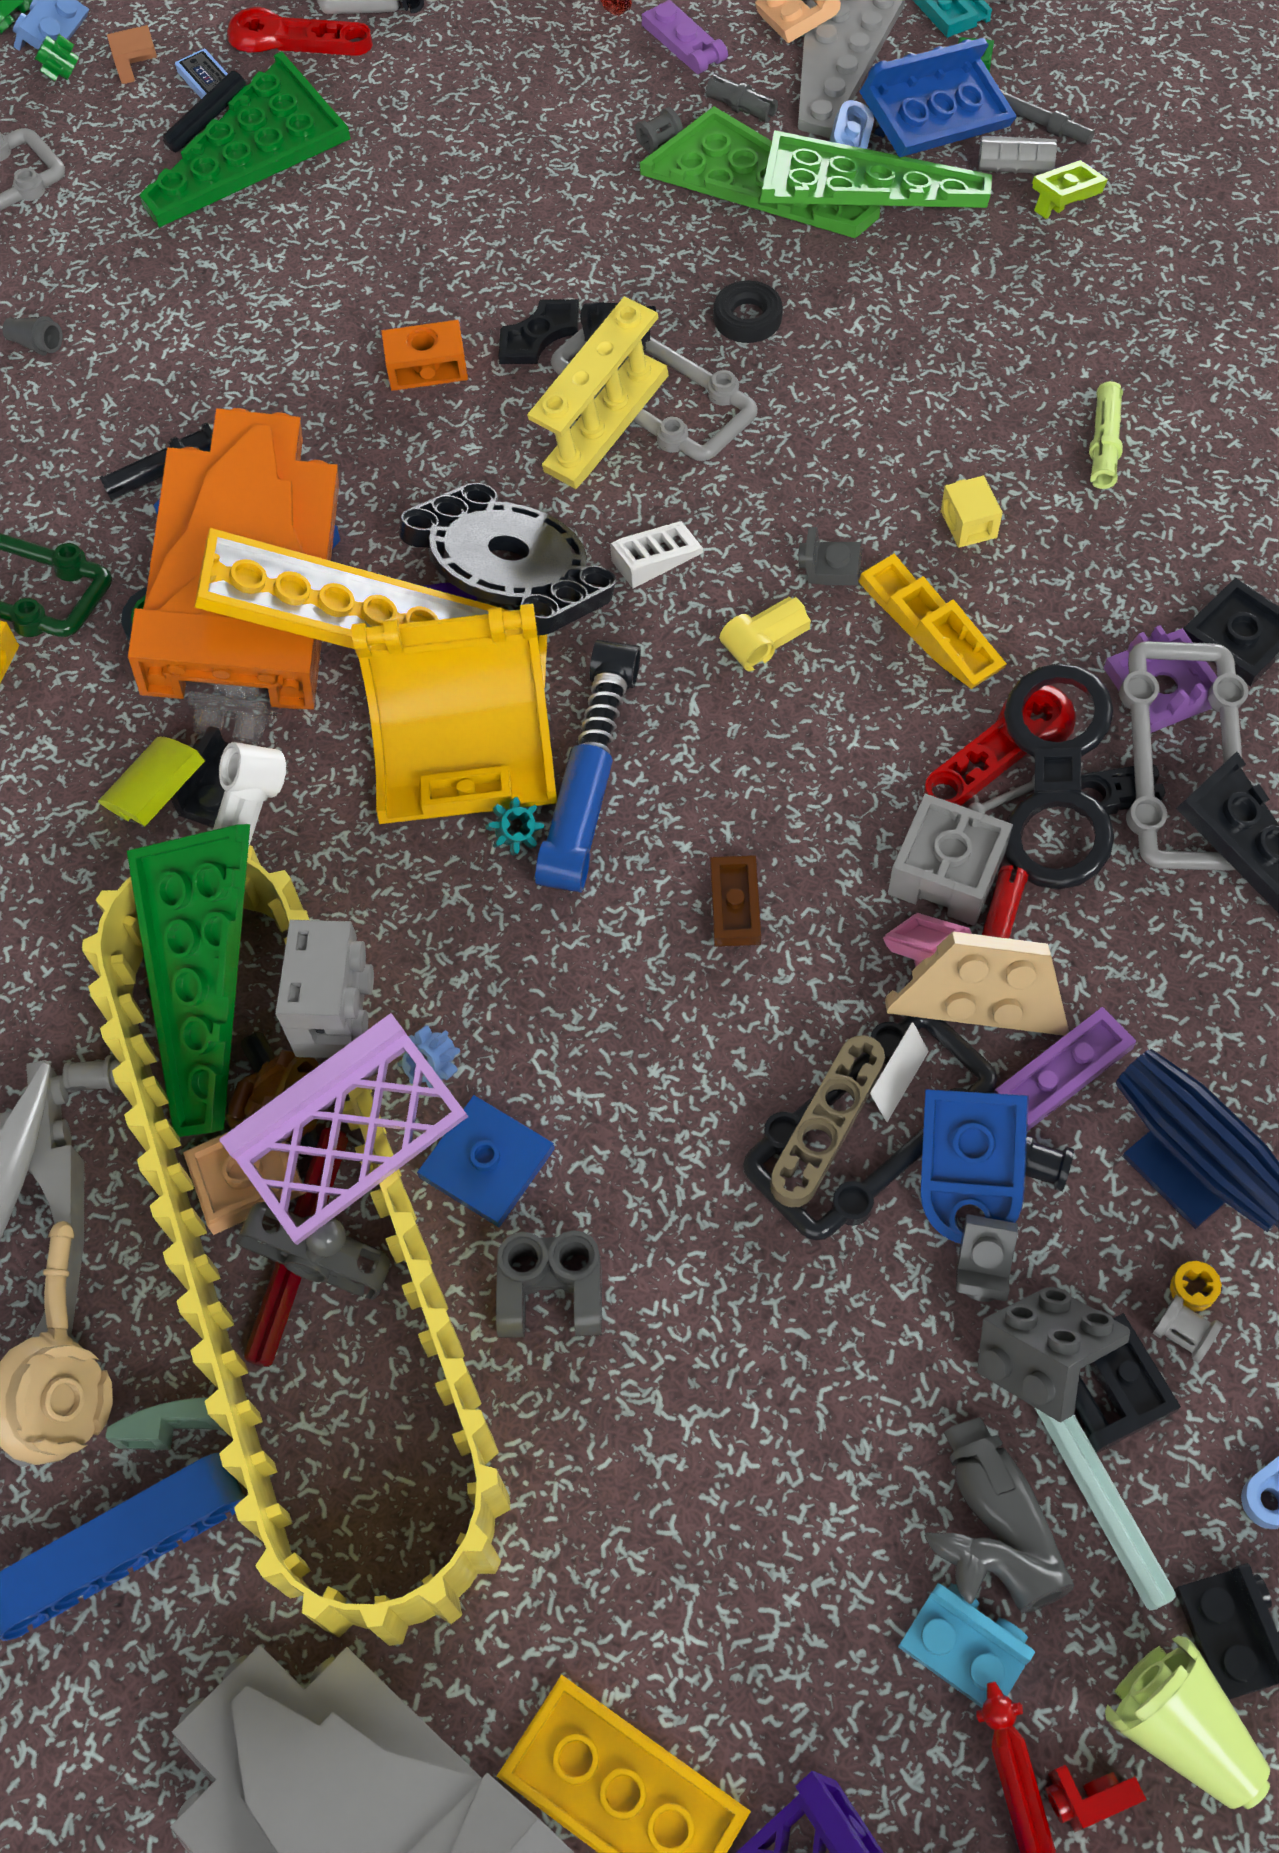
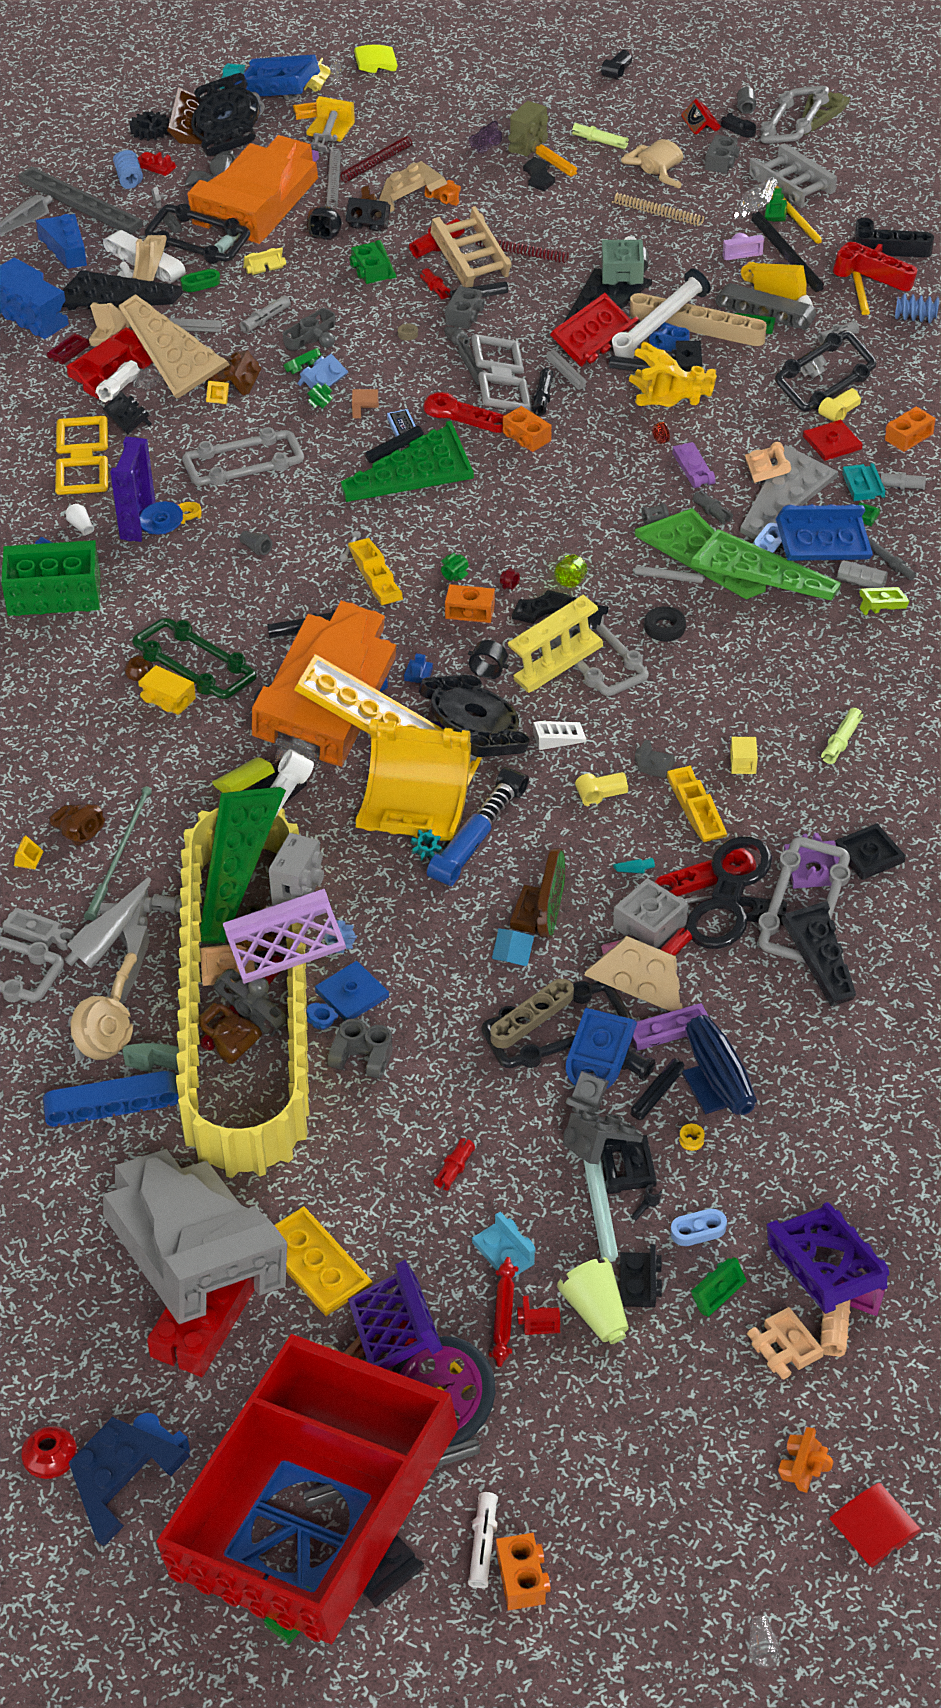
camera: 15 degrees right, 15 degrees down
(187, 323) = (344, 556): none -> light grey hinge
(251, 339) = (376, 573): none -> yellow slope
(304, 1334) = (231, 1034): none -> reddish brown piece
(377, 297) = (454, 567): none -> green gear
(382, 495) = (418, 669): none -> blue tile
(405, 37) = (527, 428): none -> orange brick
(449, 1224) = (320, 1015): none -> blue animal
(472, 296) = (509, 577): none -> dark red plate
(493, 430) = (493, 650): none -> black piece
(566, 258) = (570, 571): none -> clear neon green head
(719, 225) = (669, 574): none -> light grey piece
(737, 987) = (513, 947): none -> dark azure panel
(767, 865) = (551, 892): none -> reddish brown tile
(804, 1483) = (454, 1164): none -> red pin
(875, 764) = (634, 866): none -> teal bar
(899, 1072) = (574, 1007): white sticker -> none
(1005, 1502) = (550, 1206): dark grey piece -> none
(1095, 1203) = (657, 1089): none -> black axle
(1176, 1450) = (649, 1200): none -> black hand
(1187, 1329) = (677, 1151): light grey bush -> none

